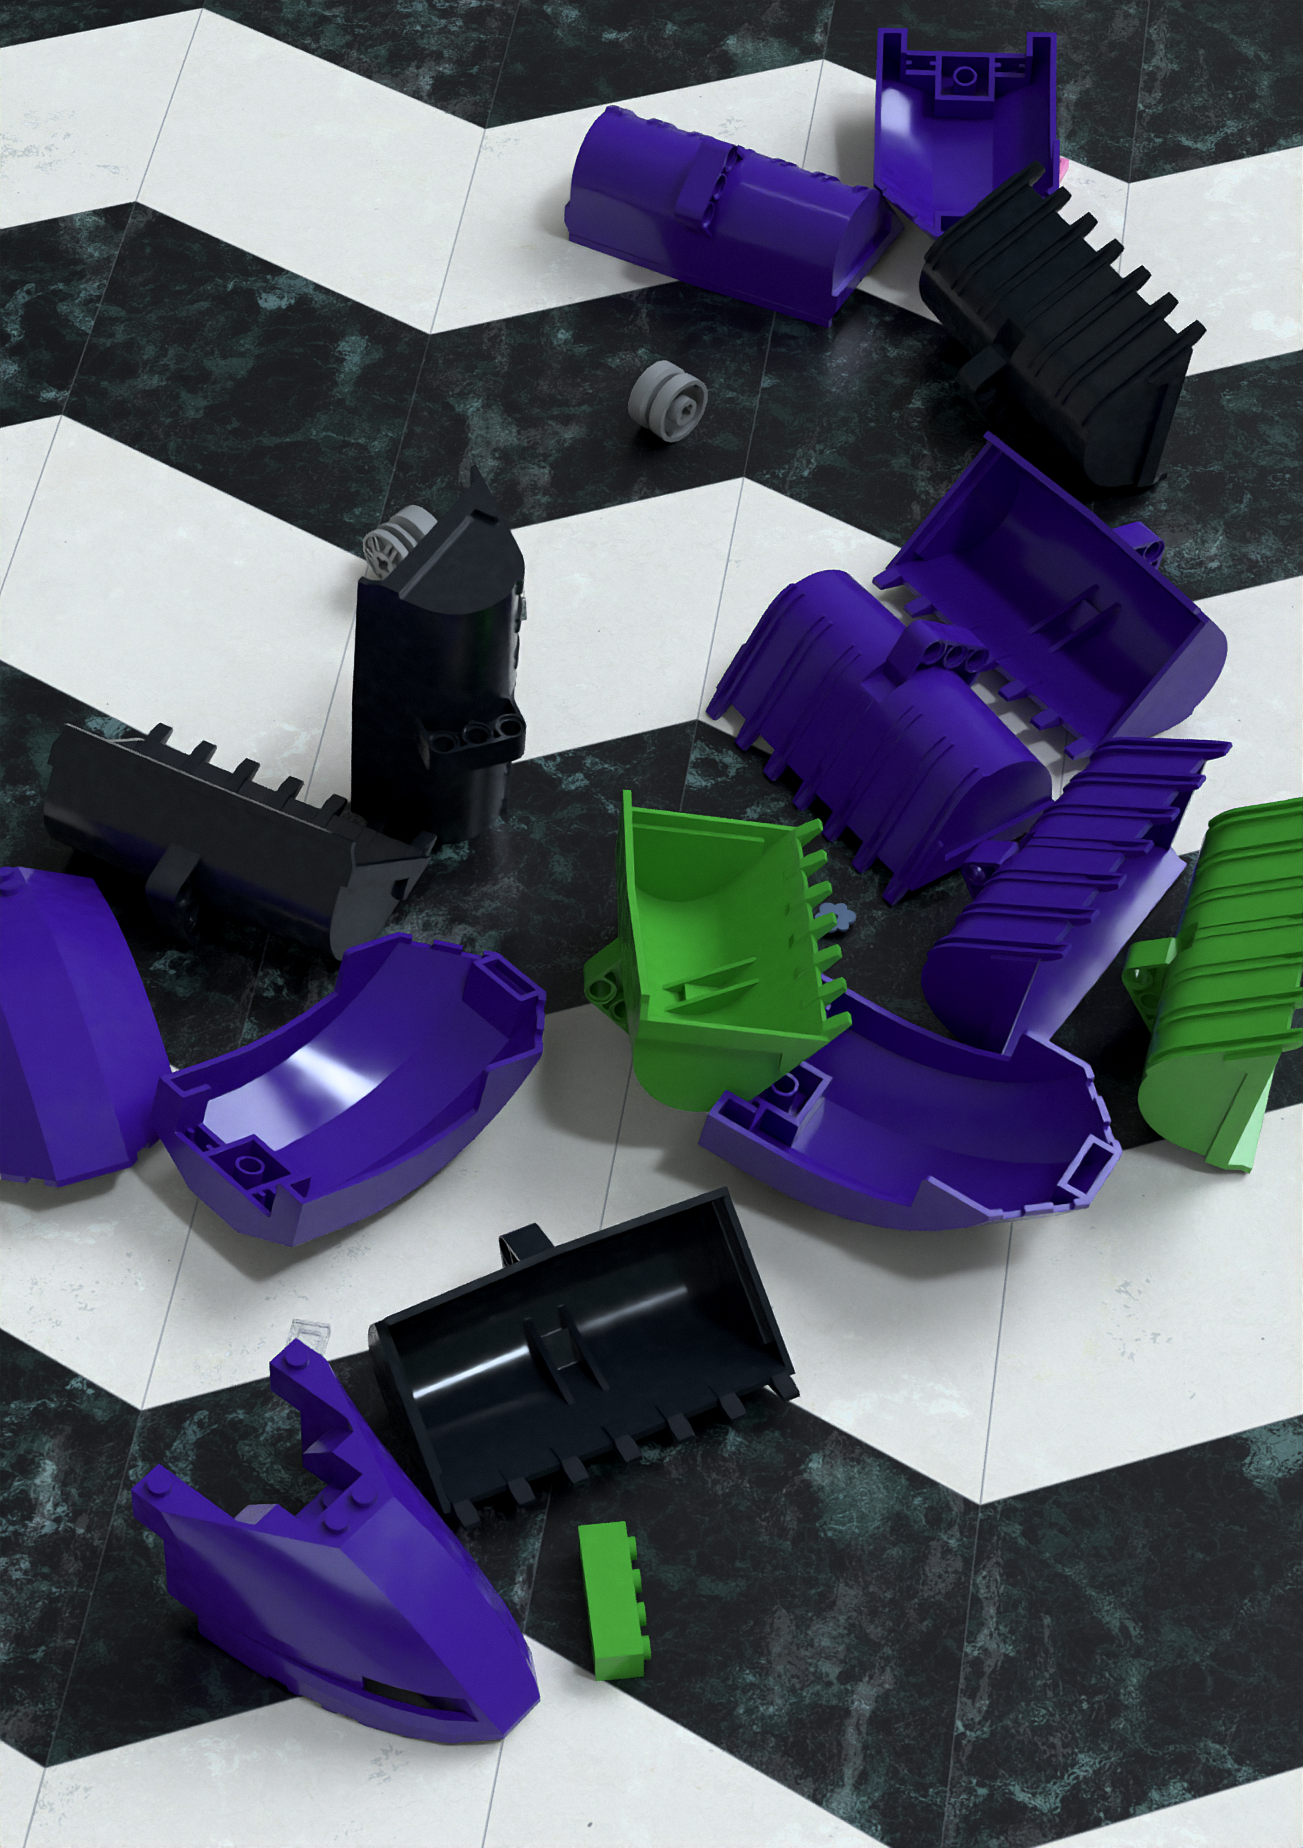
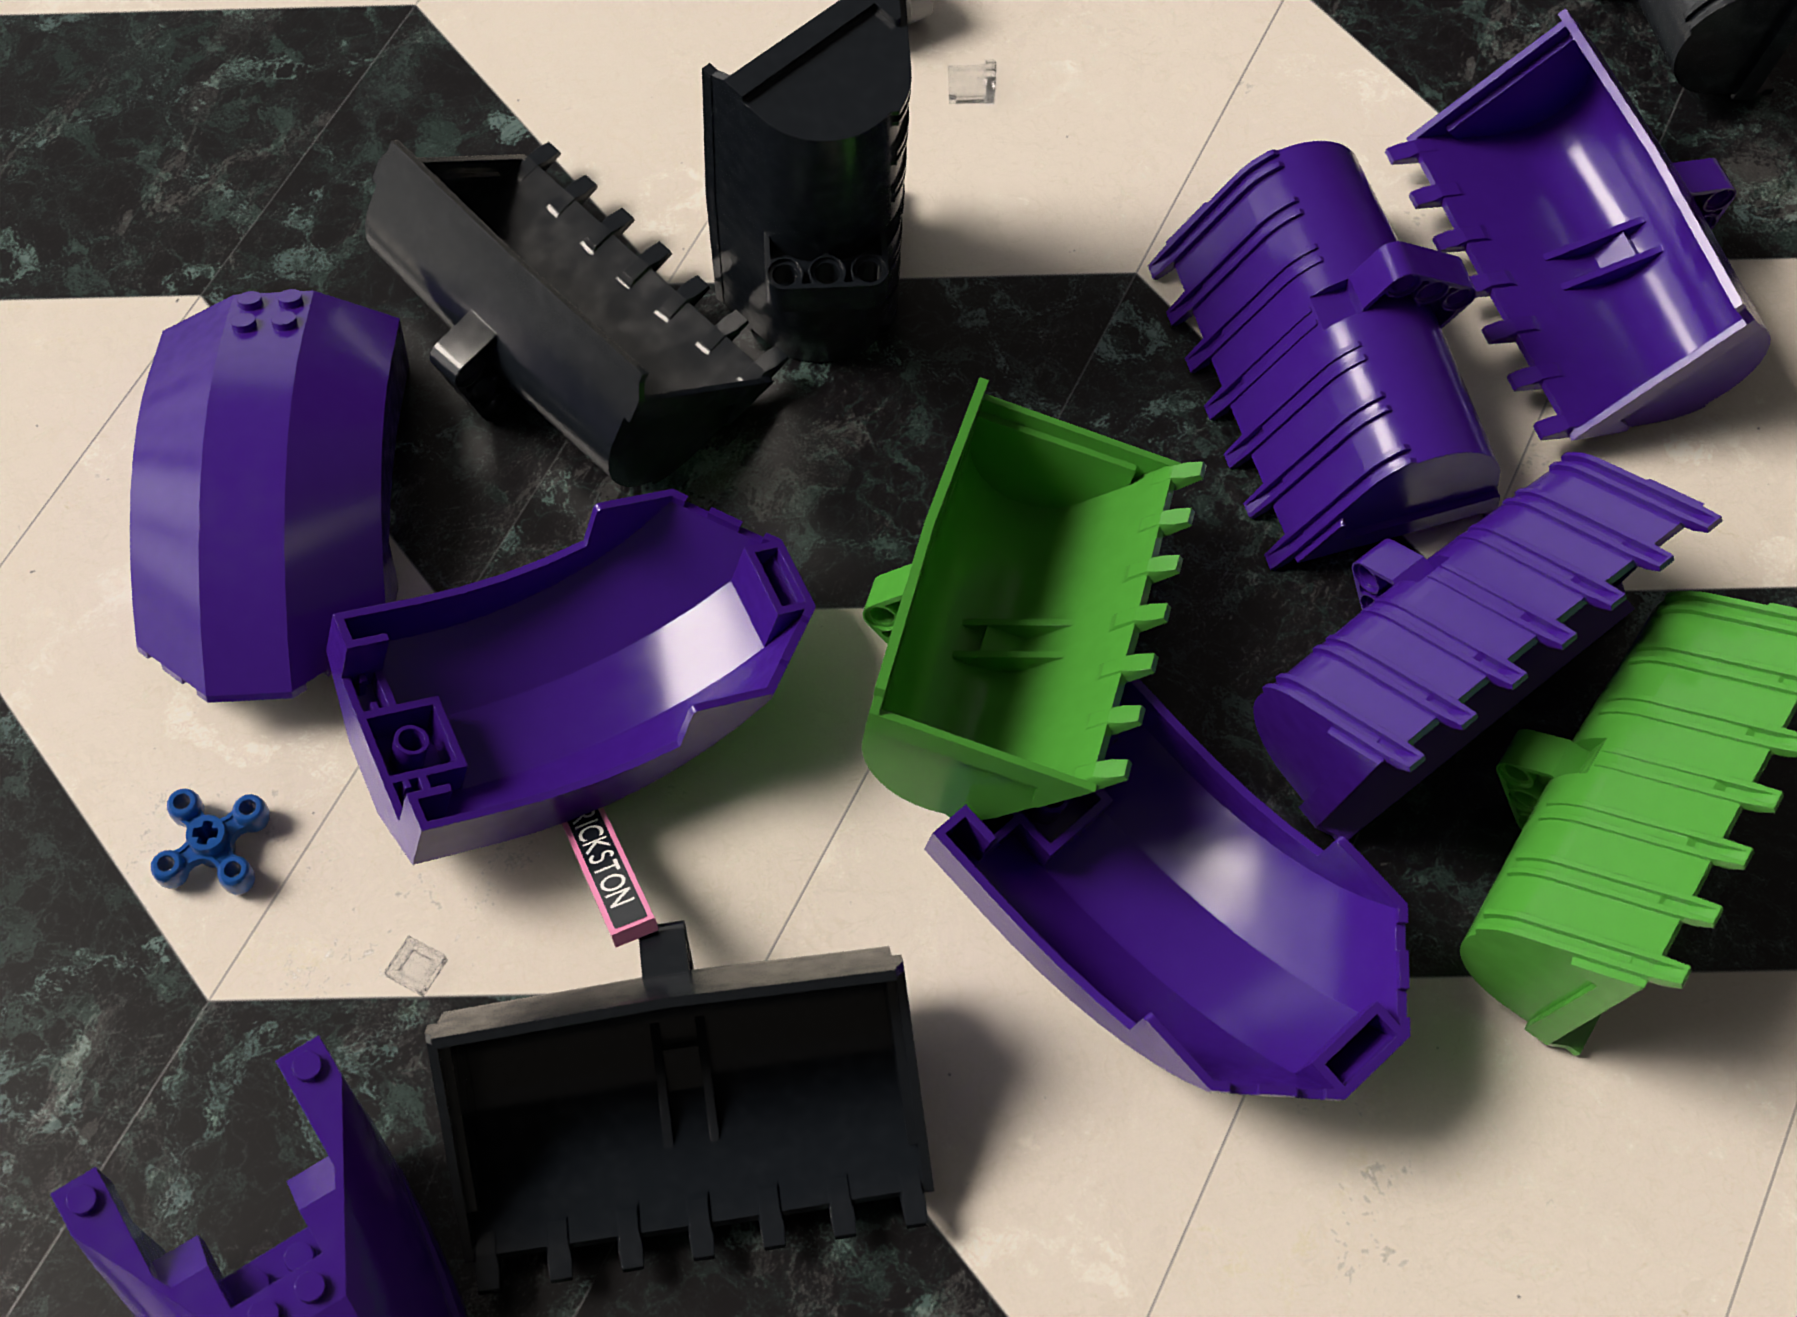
camera: 20 degrees right, 15 degrees up
(96, 1294) = (210, 841): none -> blue gear
(455, 1216) = (610, 877): none -> tile
(843, 916) = (1195, 563): sand blue plant -> none

